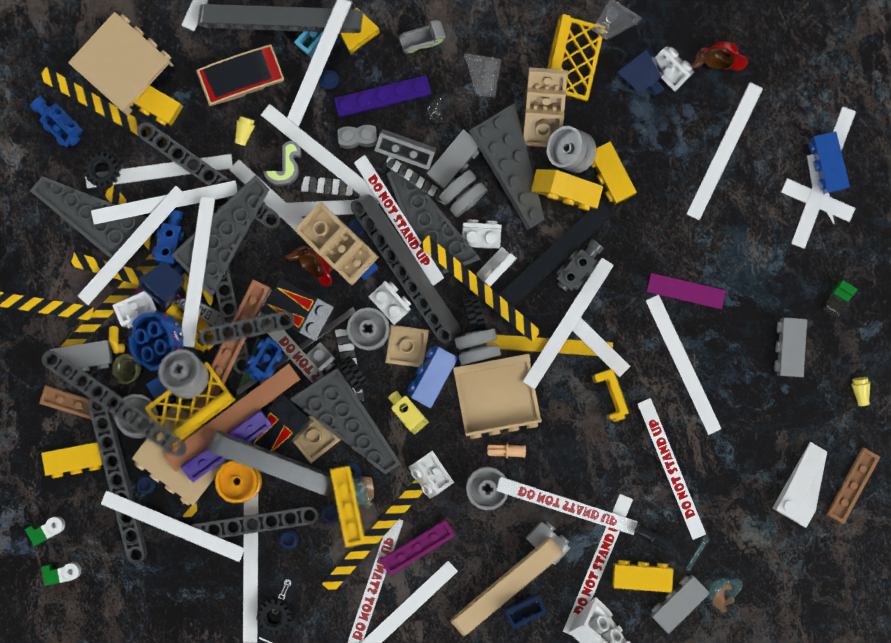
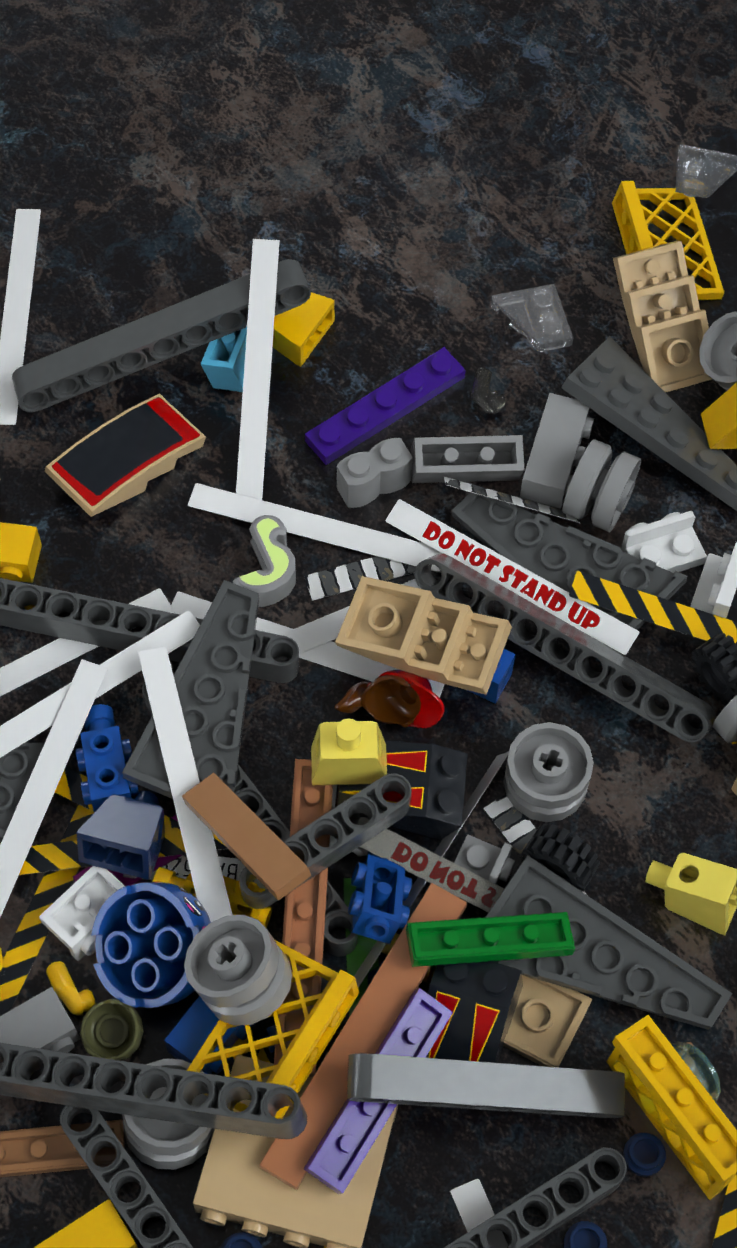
camera: 25 degrees left, 25 degrees down
(210, 314) = (246, 836): none -> medium nougat tile
(231, 490) = (436, 1185): light orange wheel -> none
(243, 130) = (168, 532): light yellow cone -> none
(275, 293) = (348, 753): none -> light yellow torso
(302, 400) = (489, 939): none -> green tile
(329, 79) = (284, 411): dark blue plate -> none
(390, 302) = (562, 705): white bracket -> none
(406, 346) = (631, 783): tan tile -> none
(423, 37) = (414, 293): light grey animal -> none
(431, 376) = (706, 804): brick -> none

